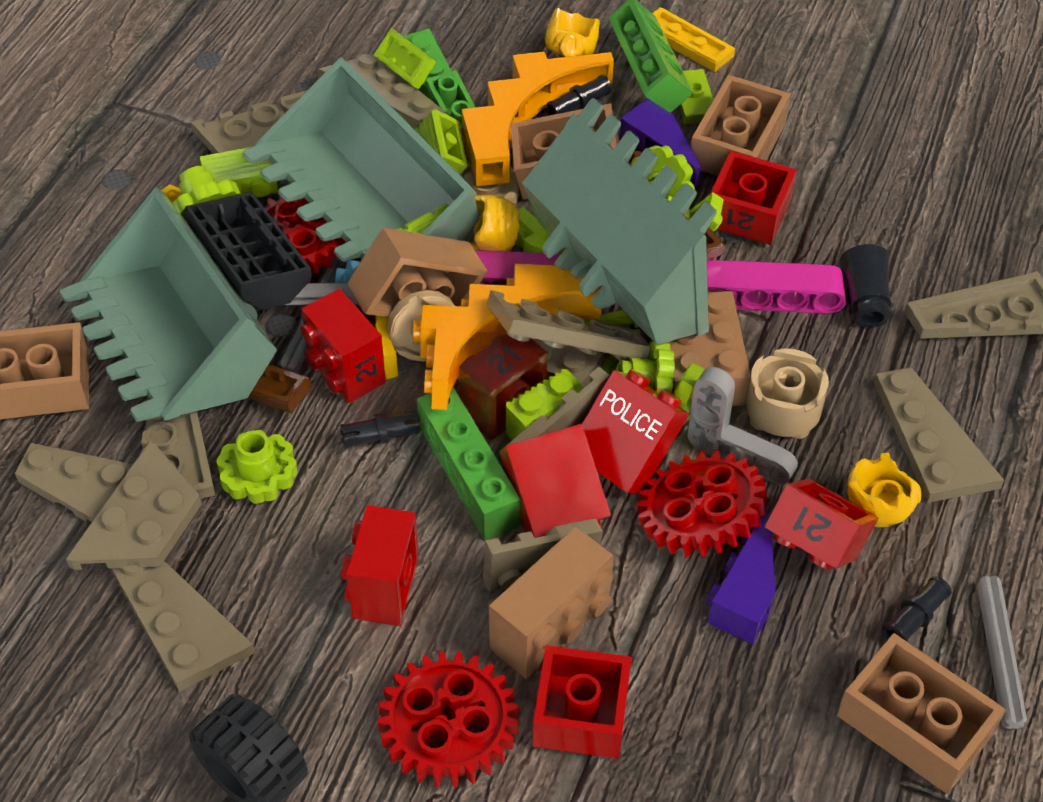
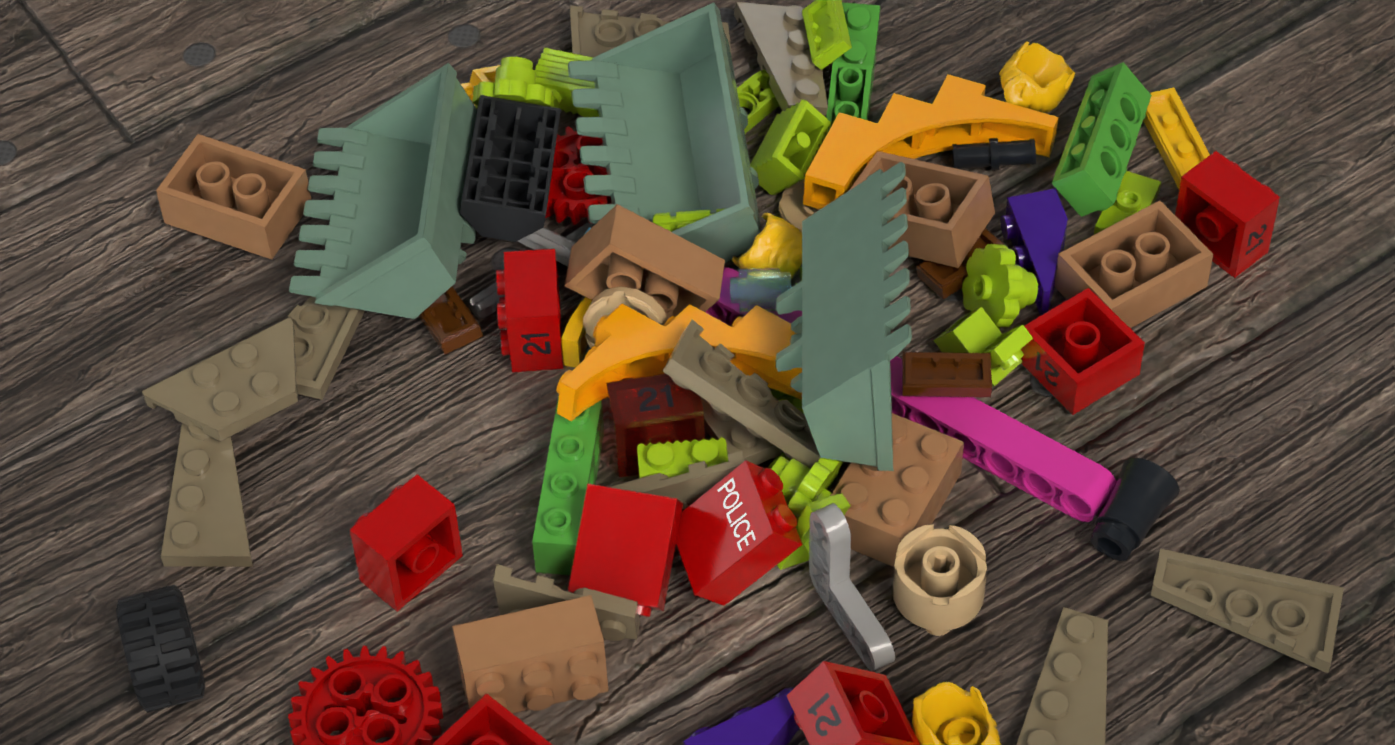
camera: 35 degrees right, 0 degrees up
(71, 478) = (208, 315): dark tan wing -> none
(257, 466) = (376, 390): lime plant -> none
(380, 428) = (513, 410): black pin -> none
(507, 250) = (758, 288): none -> clear light blue brick
(702, 503) = (759, 643): red gear -> none
(773, 59) = (1227, 212): none -> red brick

